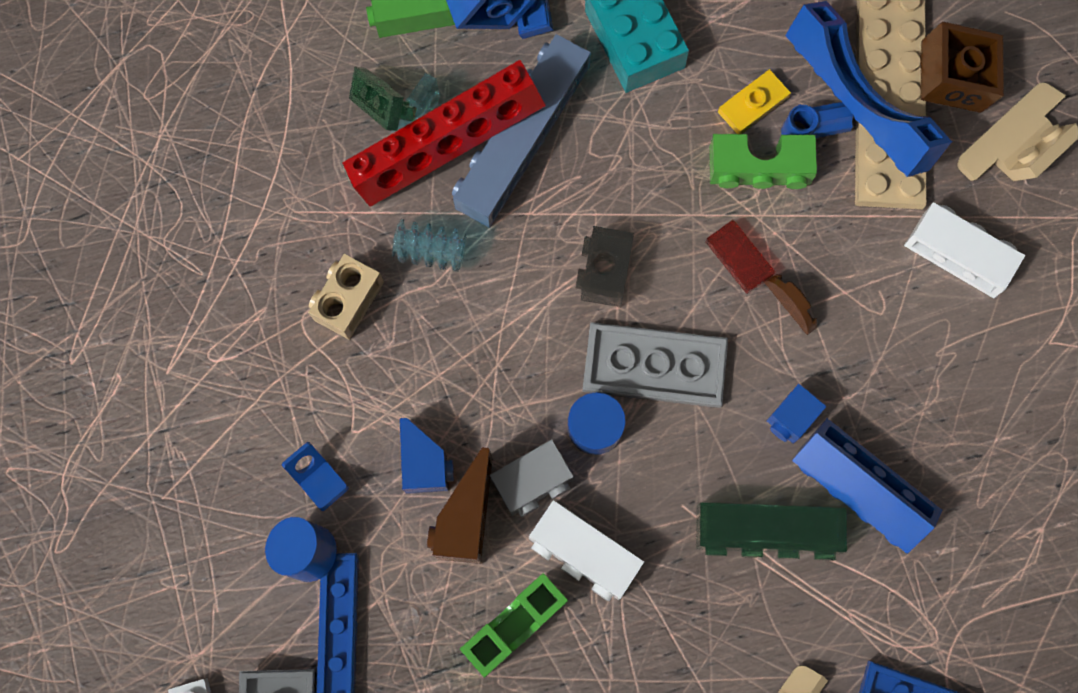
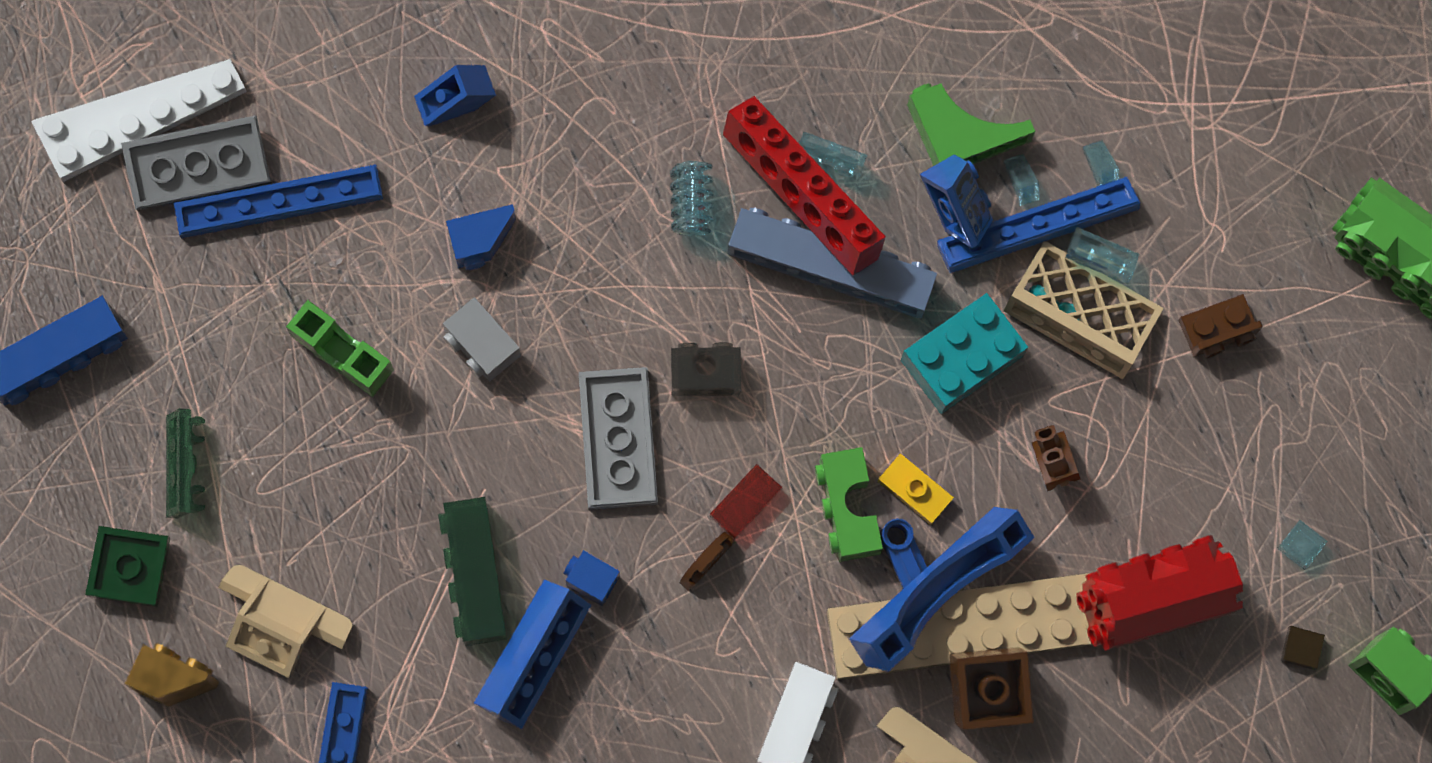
camera: 70 degrees right, 0 degrees up
(263, 453) = (455, 94): none -> blue slope
(300, 549) = (374, 143): blue piece -> none
(316, 479) = (445, 145): blue bracket -> none
(354, 299) = (621, 139): tan brick -> none
(379, 100) = (831, 111): clear green plate -> none
(463, 518) = (426, 283): reddish brown slope -> none
(585, 552) = (420, 402): white brick -> none
(596, 423) = (545, 389): blue piece -> none

